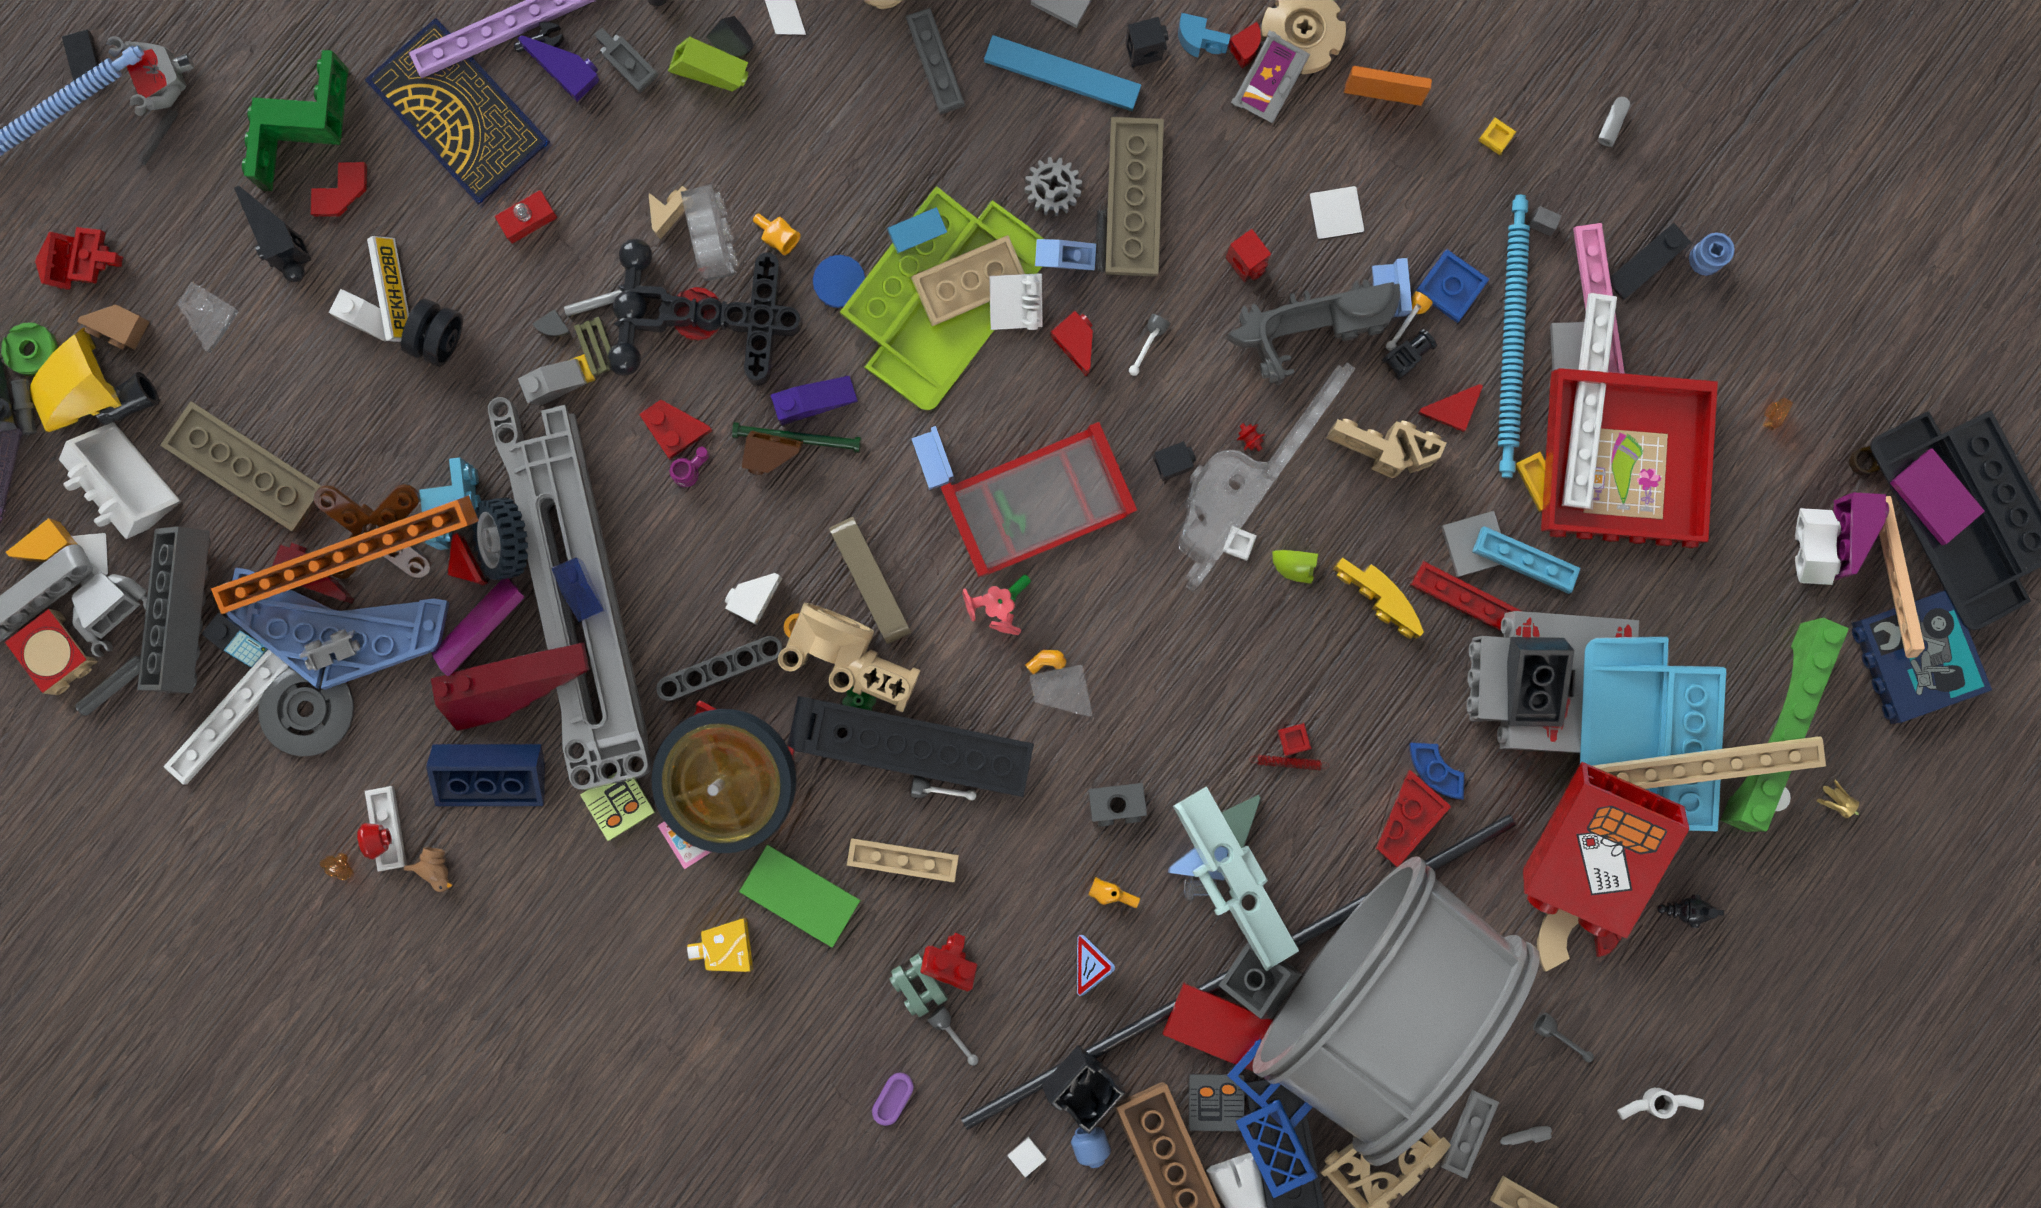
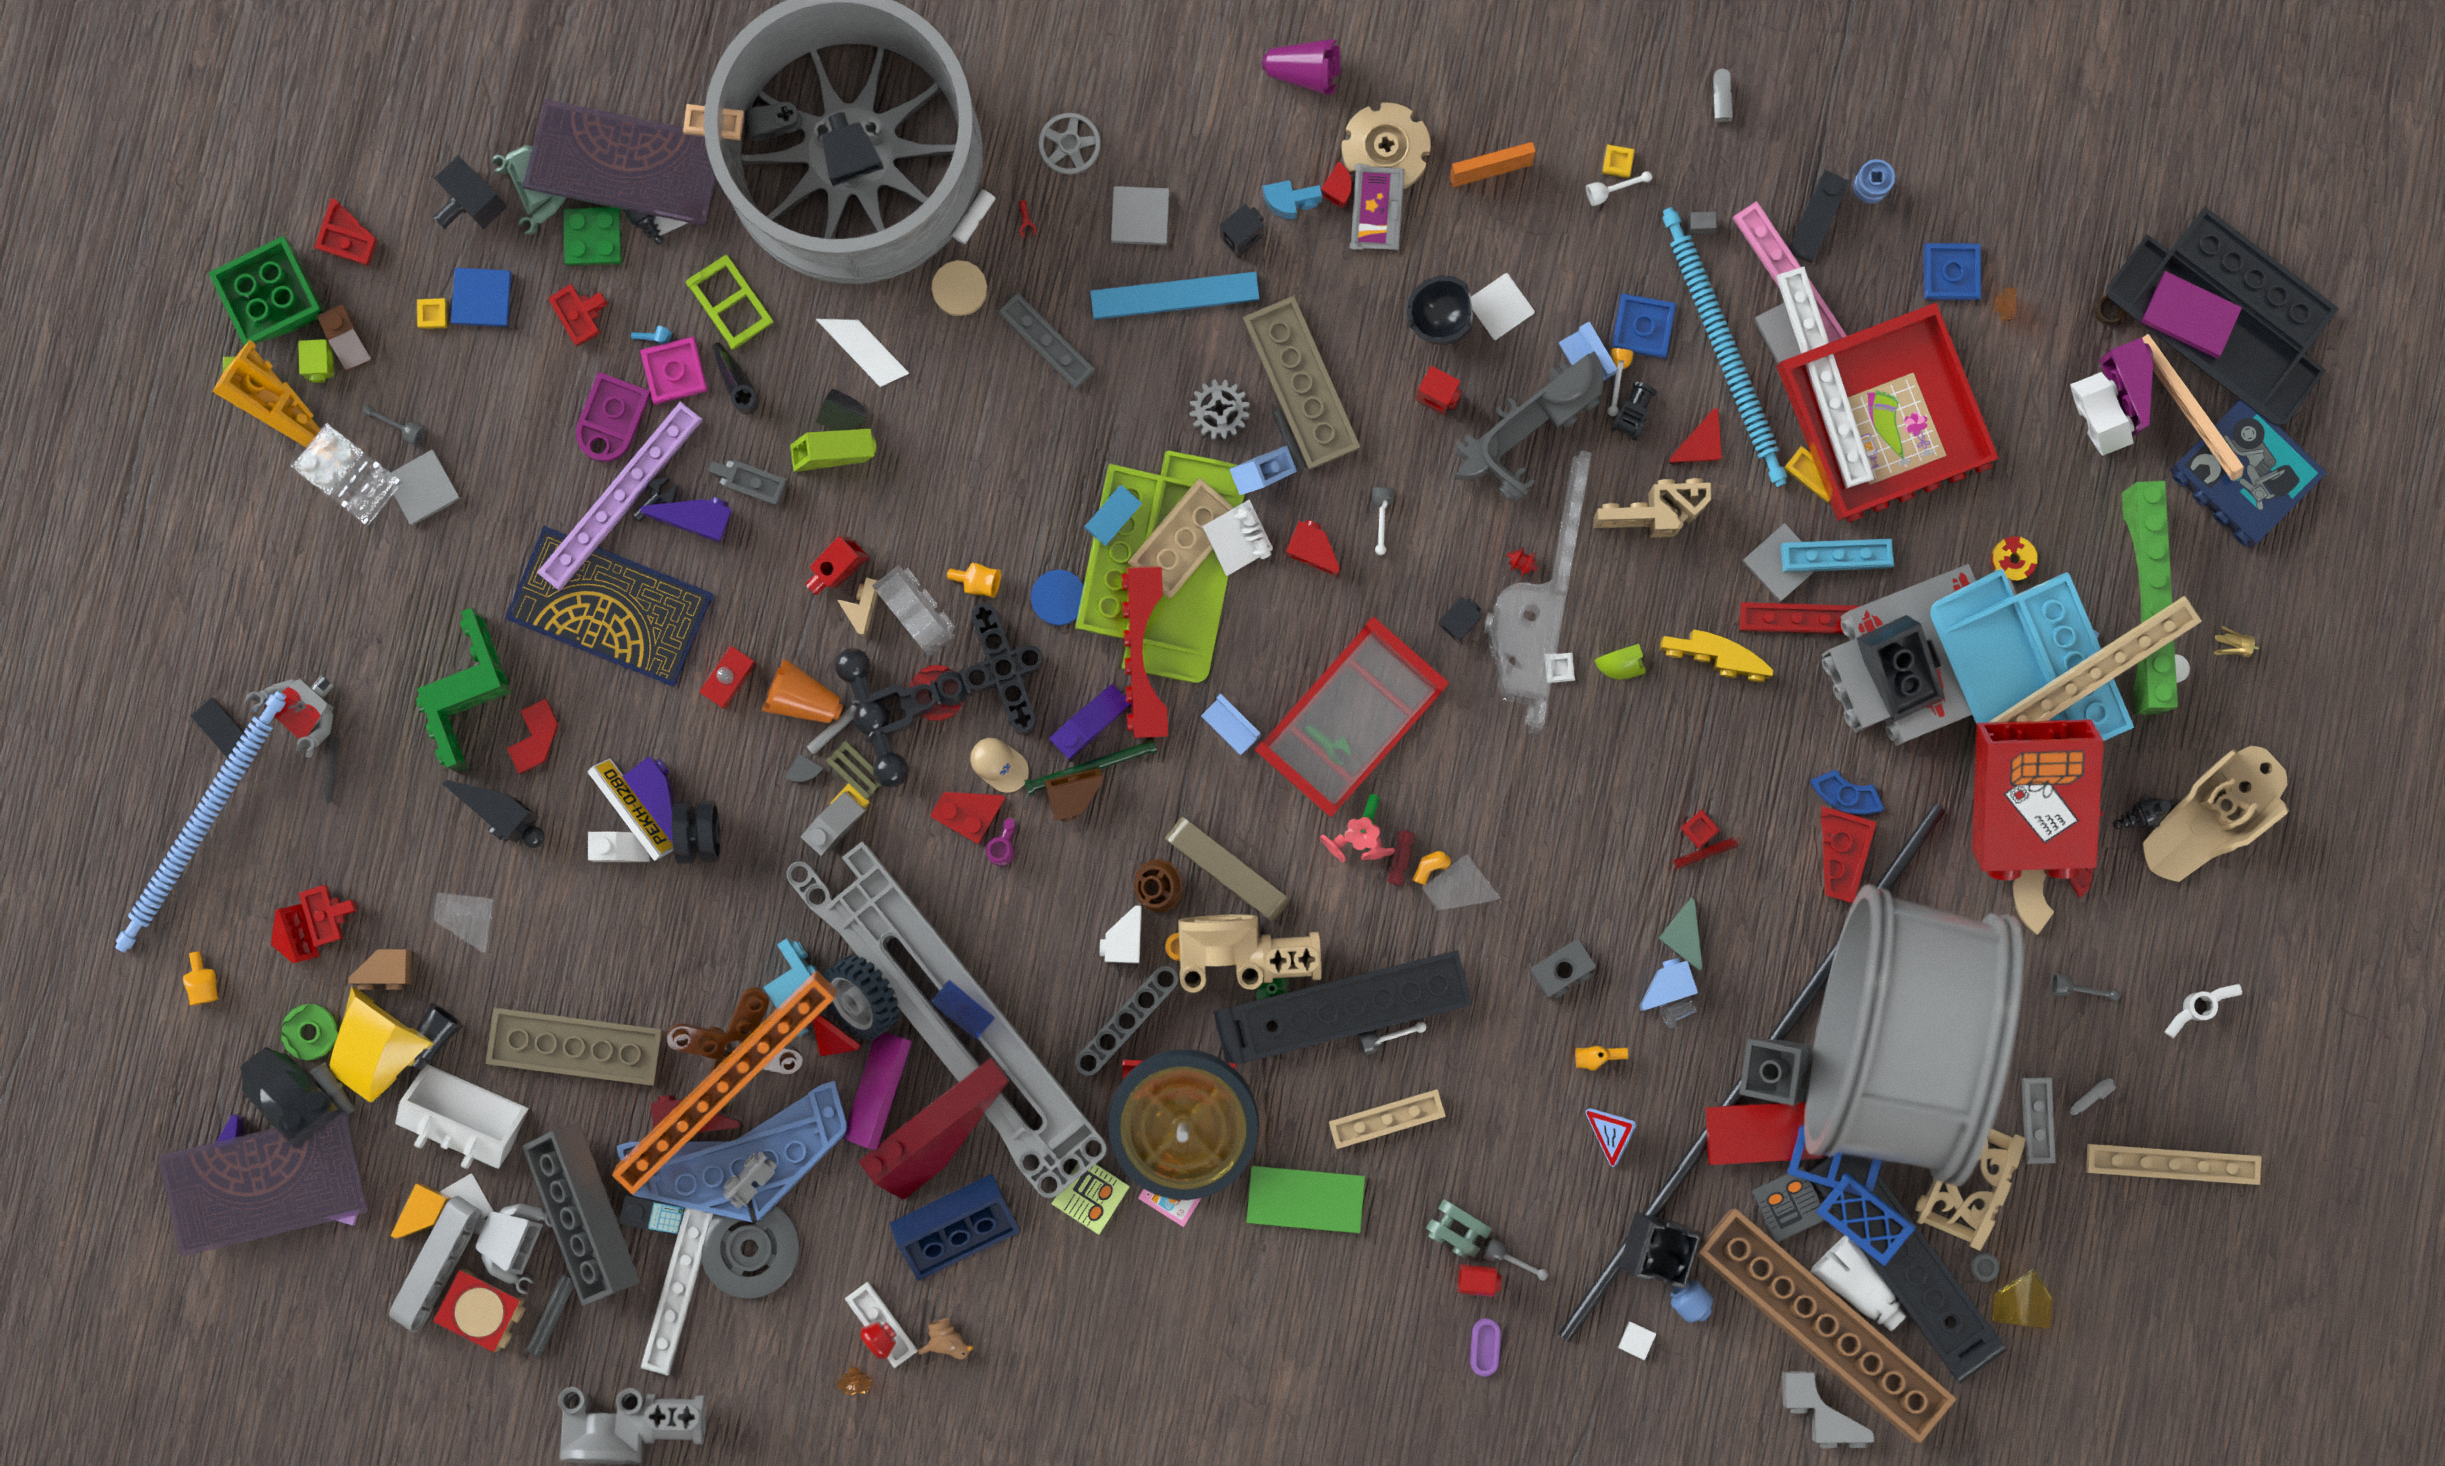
camera: 20 degrees left, 0 degrees up
(113, 816) = (619, 1436): none -> light grey piece
(415, 278) = (654, 791): none -> dark purple slope
(578, 260) = (801, 696): none -> orange cone
(664, 163) = (844, 556): none -> red torso
(719, 399) = (999, 765): none -> tan cap
(724, 947) = (1258, 1281): yellow torso -> none
(804, 566) = (1158, 885): none -> reddish brown piece
(868, 413) = (1143, 593): none -> red arch
(913, 1039) = (1478, 1280): none -> red brick
(950, 964) = (1478, 1195): red hinge -> none
(1024, 641) = (1401, 858): none -> dark red axle
(1242, 873) = (1711, 977): light aqua piece -> none
(1283, 189) = (1440, 310): none -> black cylinder
(1467, 154) = (1598, 192): none -> white hinge
(1691, 635) = (2023, 550): none -> yellow piece
(1742, 364) = (1952, 271): none -> blue tile
(1754, 943) = (2217, 814): none -> tan piece

